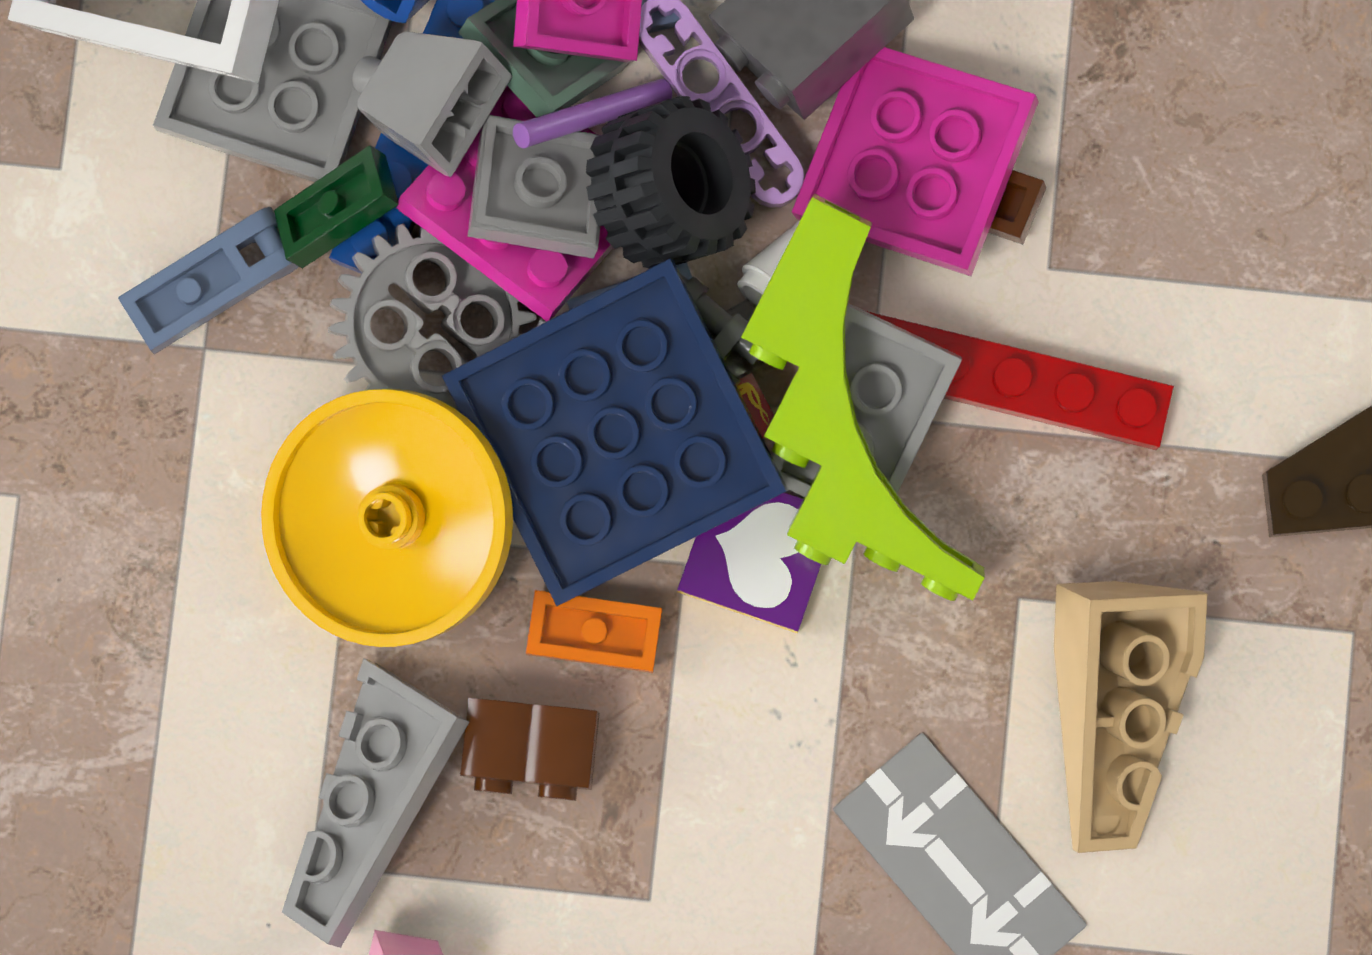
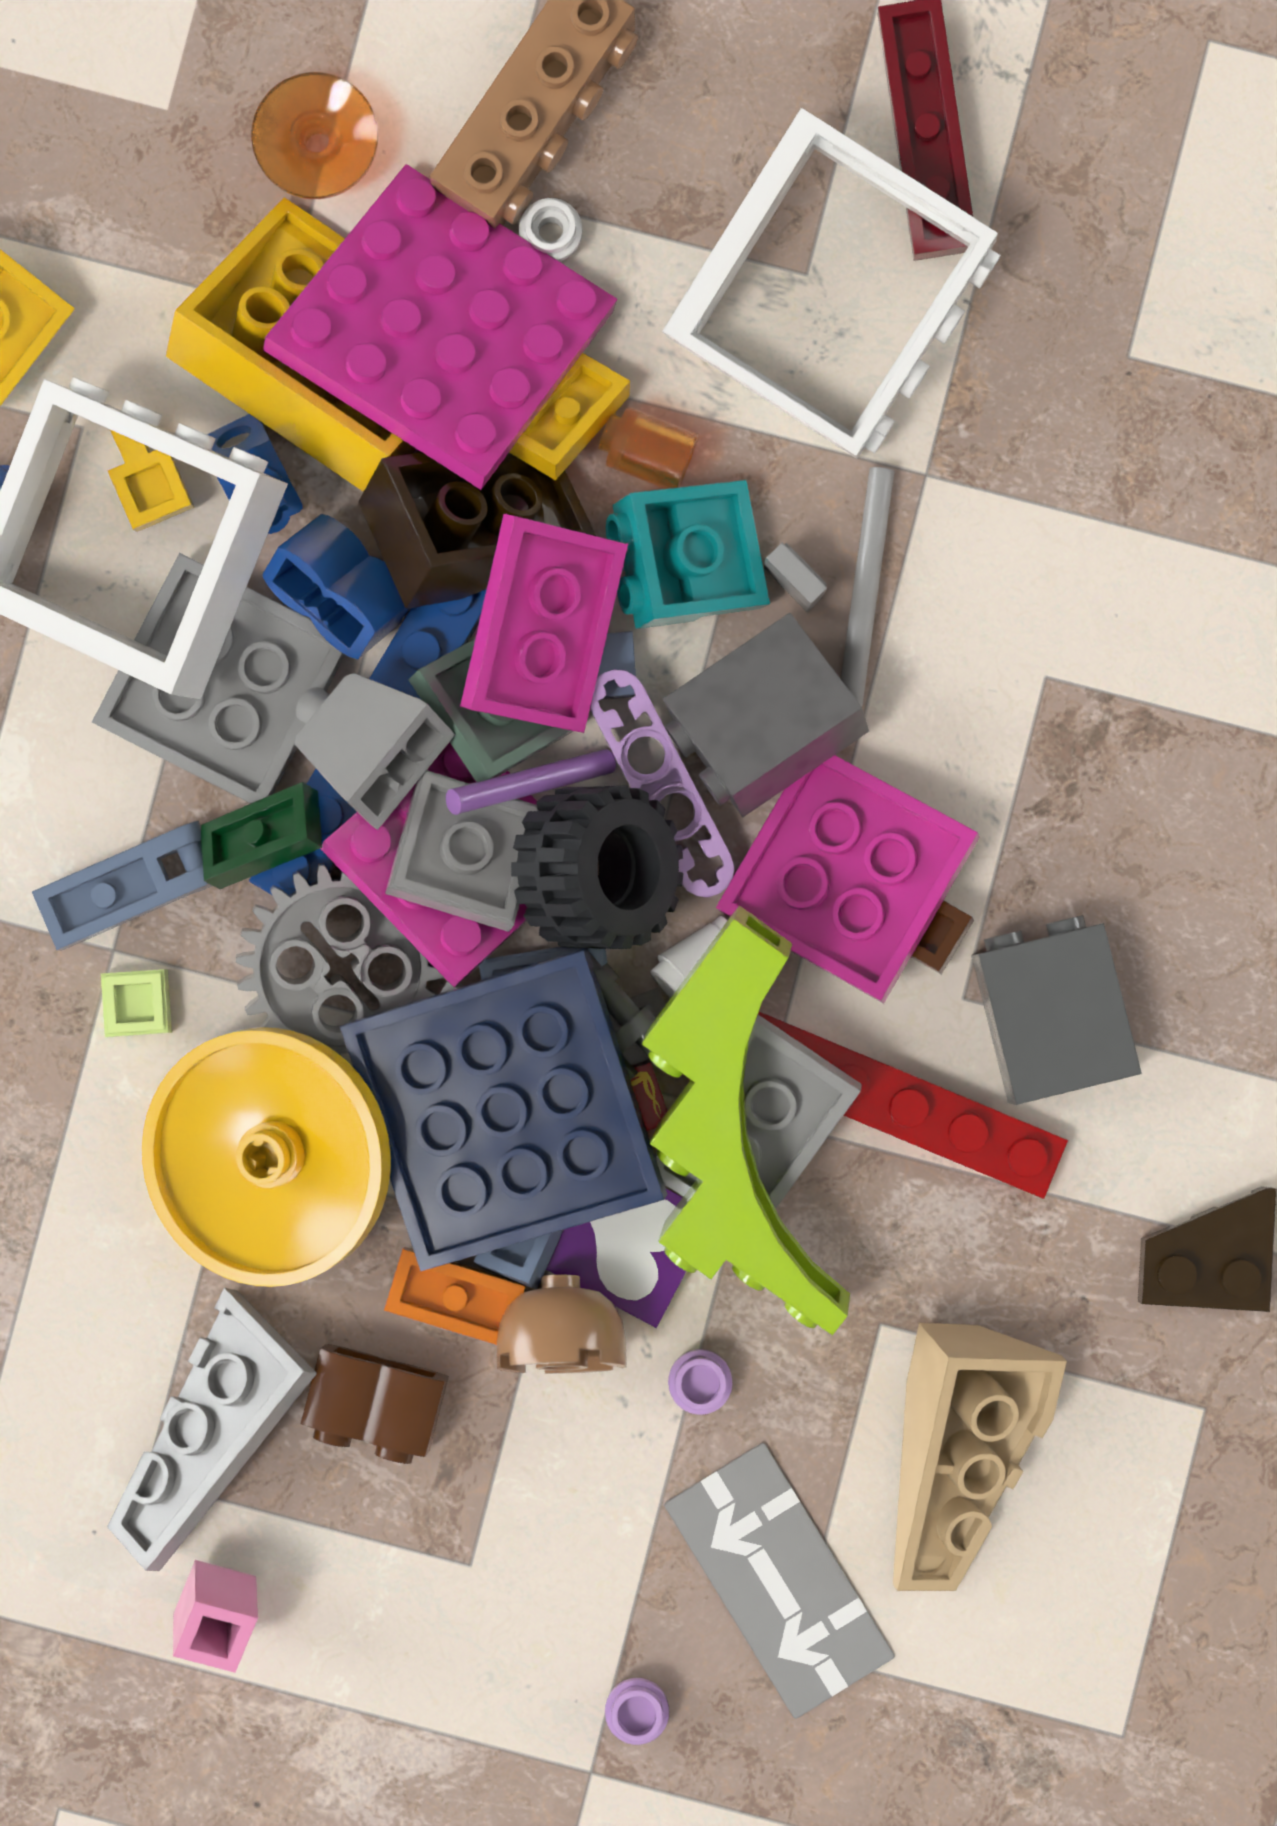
camera: 10 degrees right, 5 degrees up
(235, 394) = (136, 1003): none -> yellowish green tile
(653, 582) = (522, 1261): none -> sand blue plate
(705, 644) = (561, 1330): none -> medium nougat cylinder
(849, 679) = (700, 1381): none -> lavender plate
(1140, 261) = (1055, 1011): none -> dark grey brick

